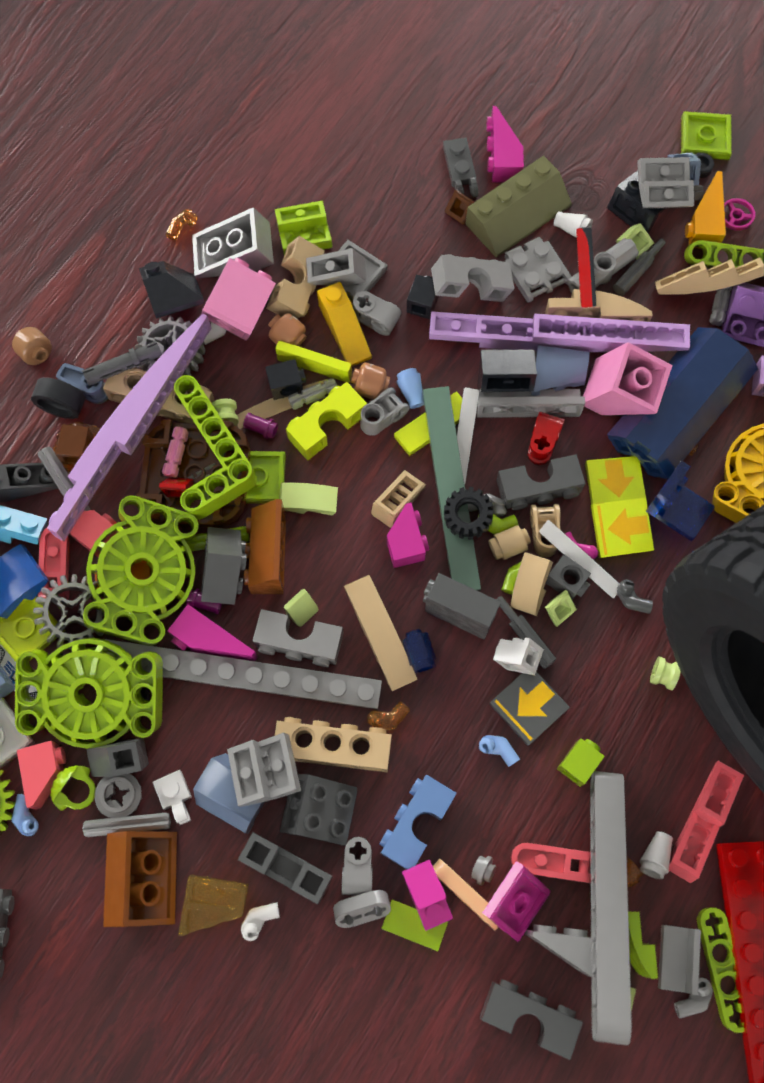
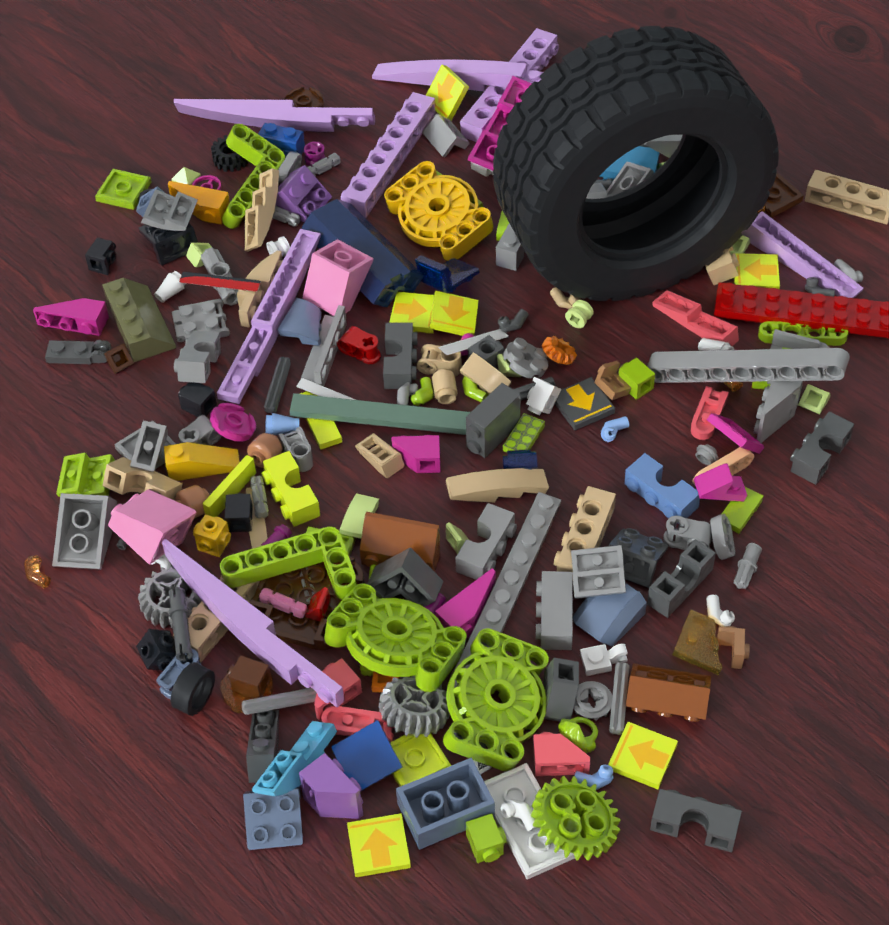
camera: 75 degrees left, 20 degrees down
(31, 345) = (121, 712): medium nougat head -> none
(60, 863) = (643, 755): none -> neon yellow tile
(95, 347) = (157, 649): none -> black brick
(170, 288) = (112, 585): black slope -> none
(206, 953) = (736, 638): none -> medium nougat bracket
(221, 731) = (555, 610): none -> light grey brick
(248, 362) = (212, 535): none -> yellow brick
(329, 945) = (747, 565): none -> light grey axle
(388, 720) = (572, 494): clear orange arm -> none
(398, 339) = (232, 422): none -> dark pink tile
(454, 370) = (277, 385): none -> dark grey axle
(463, 647) = (524, 433): none -> lime tile
(468, 497) = (414, 411): black tyre -> none
(507, 371) = (299, 347): slope -> none
(565, 733) = (610, 382): none -> medium nougat bracket
(586, 628) = (526, 358): none -> light grey plate
(588, 659) = (559, 350): none -> orange gear
(596, 144) = (101, 256): none -> black brick
(637, 269) = (230, 258): dark grey axle -> none
(663, 312) = (280, 245): none -> white wheel
(747, 190) = (186, 176): none -> yellowish green slope

